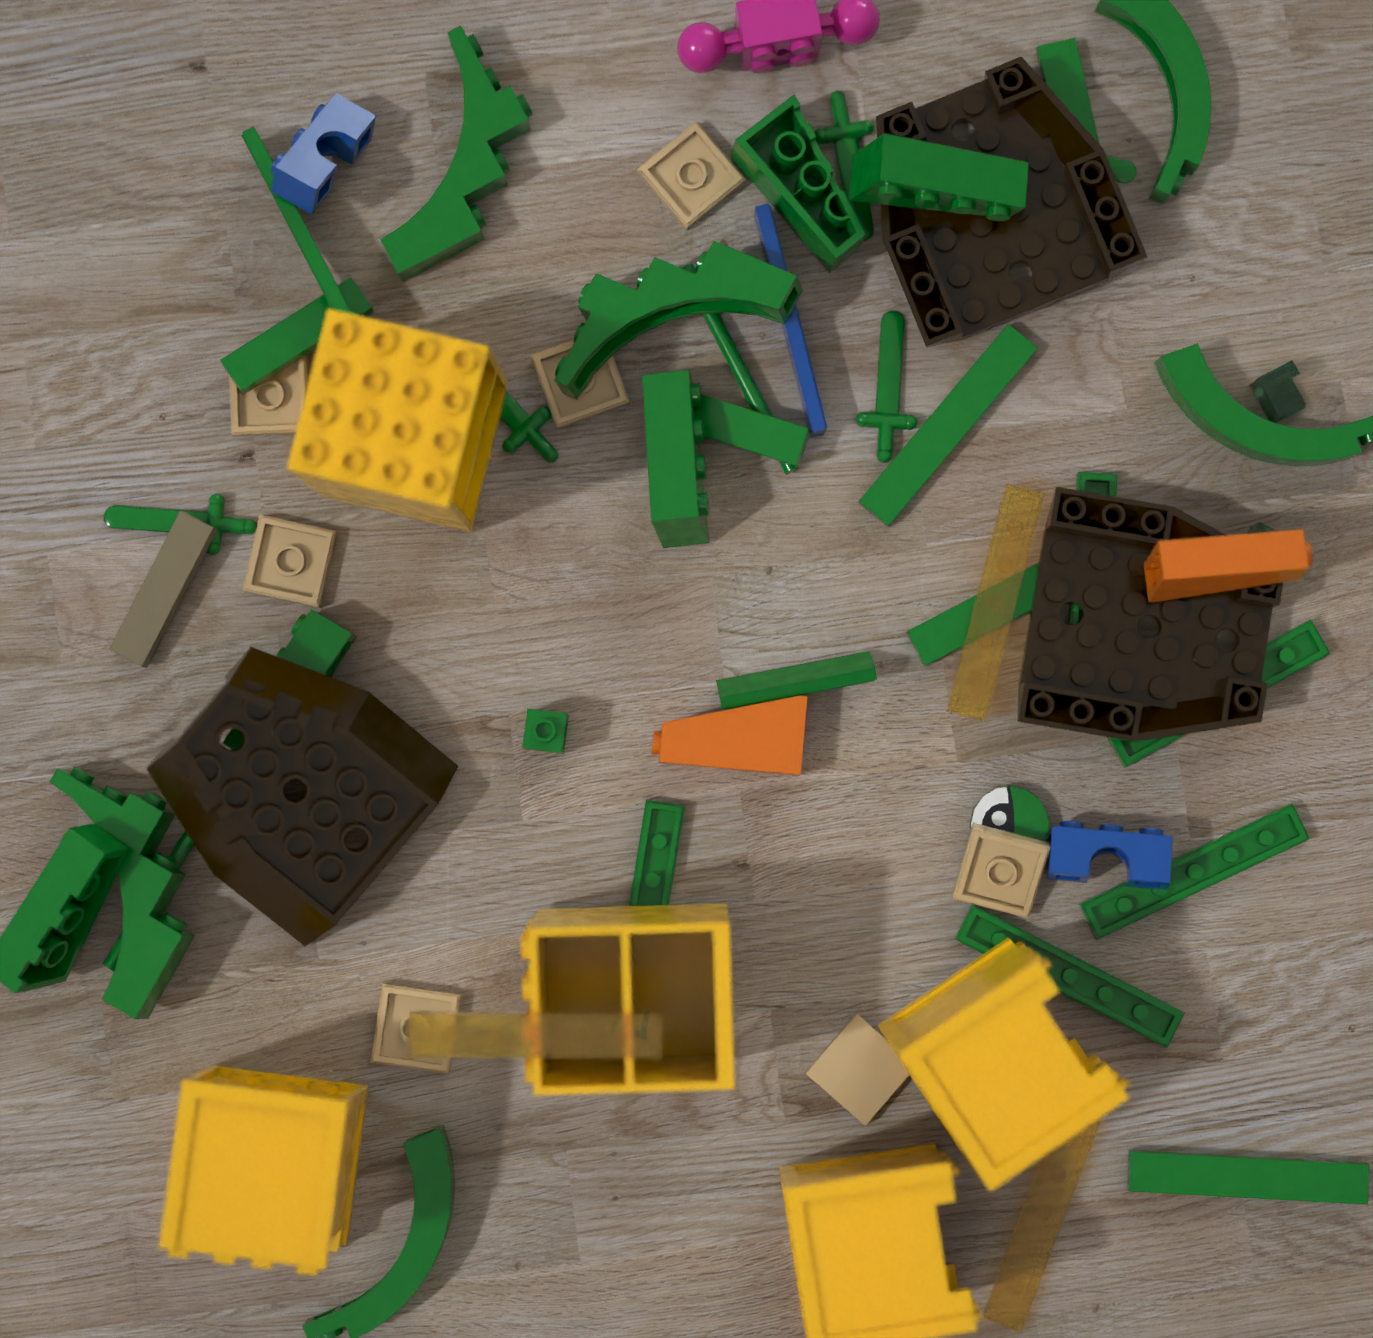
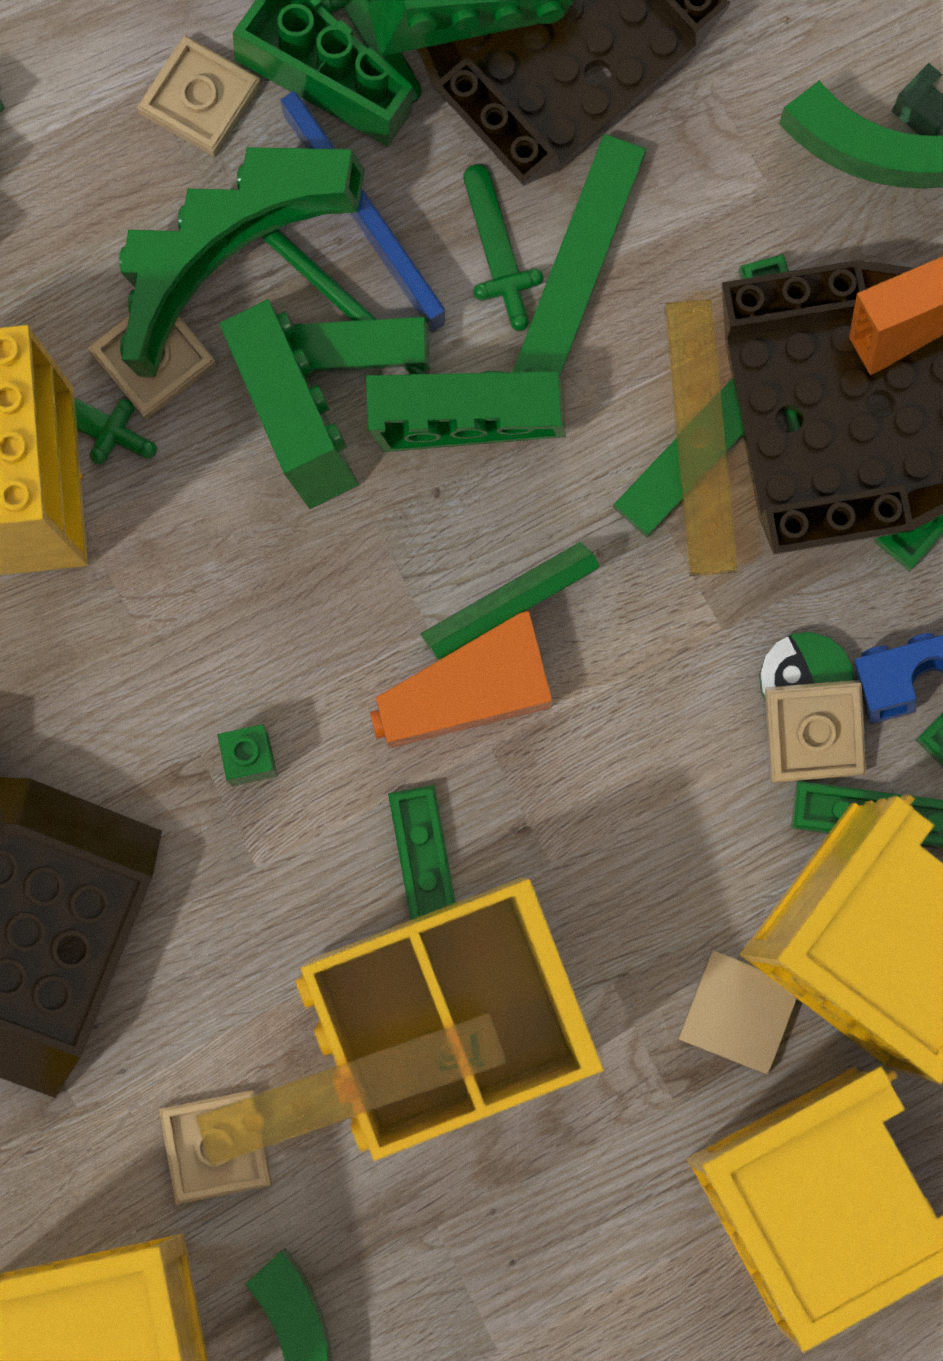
camera: 20 degrees left, 5 degrees down
(815, 515) = (464, 408): none -> green wedge

